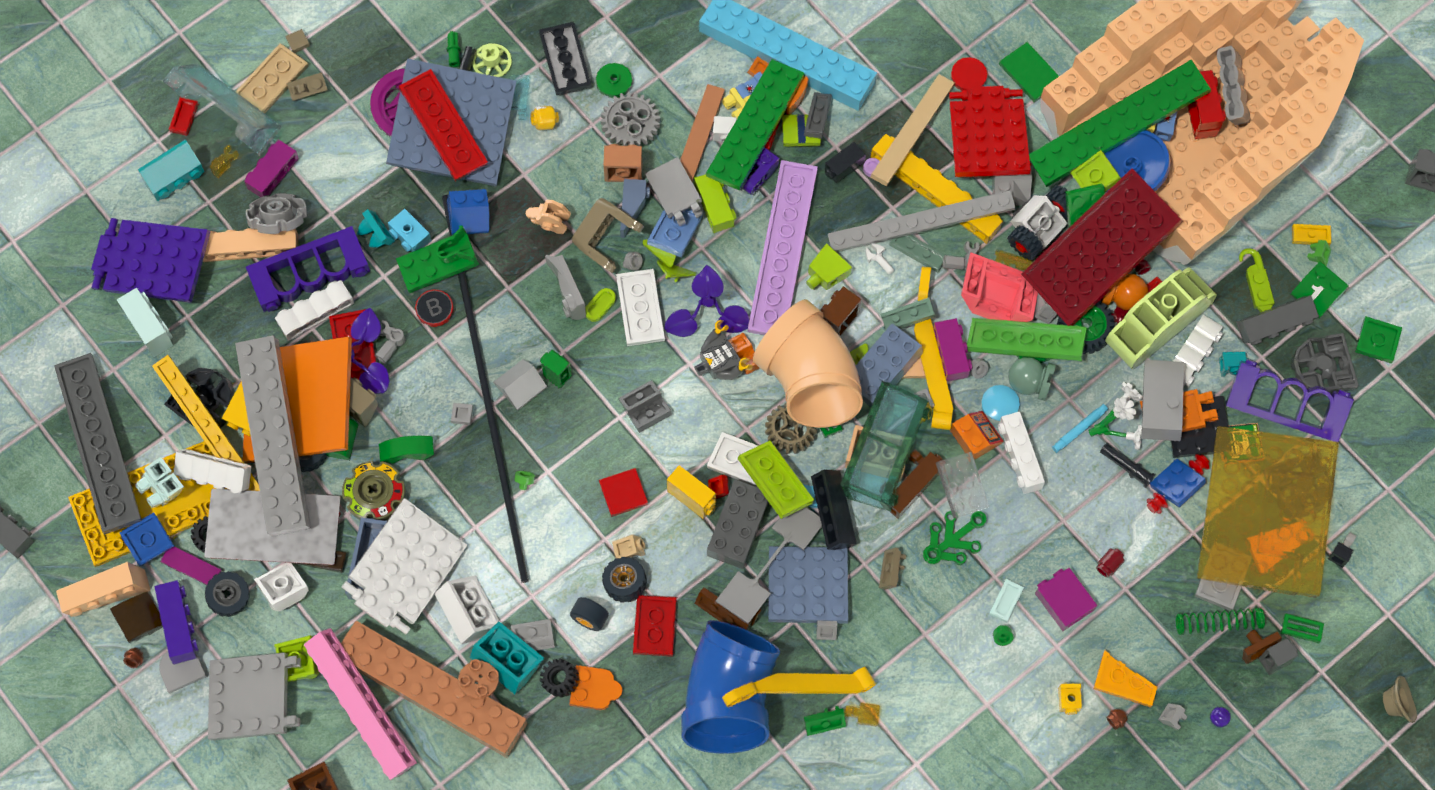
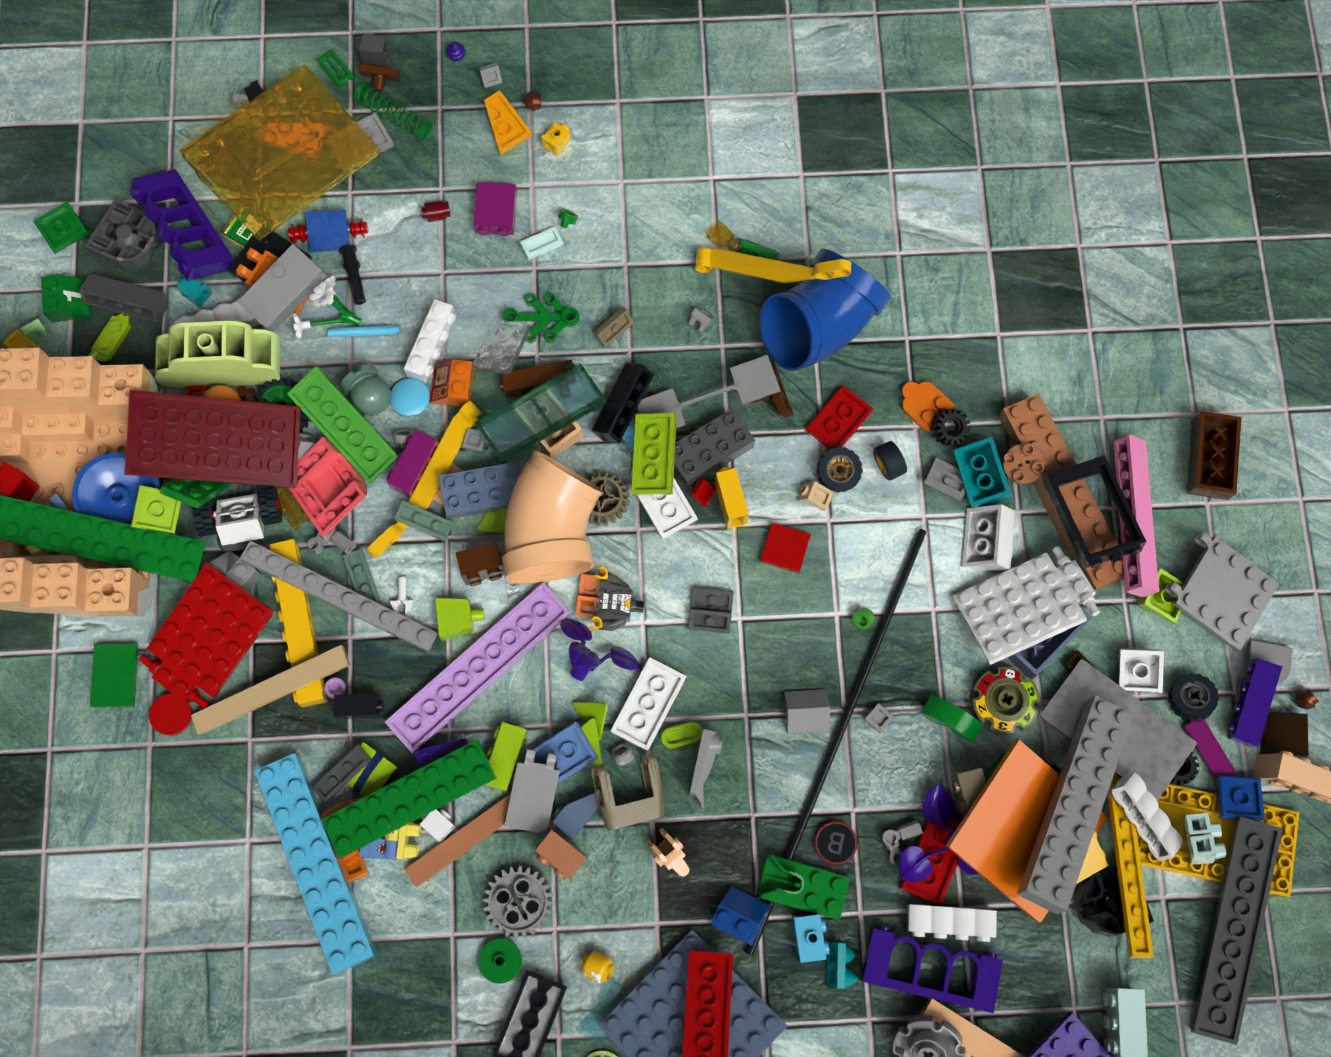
camera: 145 degrees left, 5 degrees up
(430, 693) = (1080, 471): none -> black door
(555, 368) = (769, 694): green brick -> none
(808, 585) = (691, 360): sand blue plate -> none

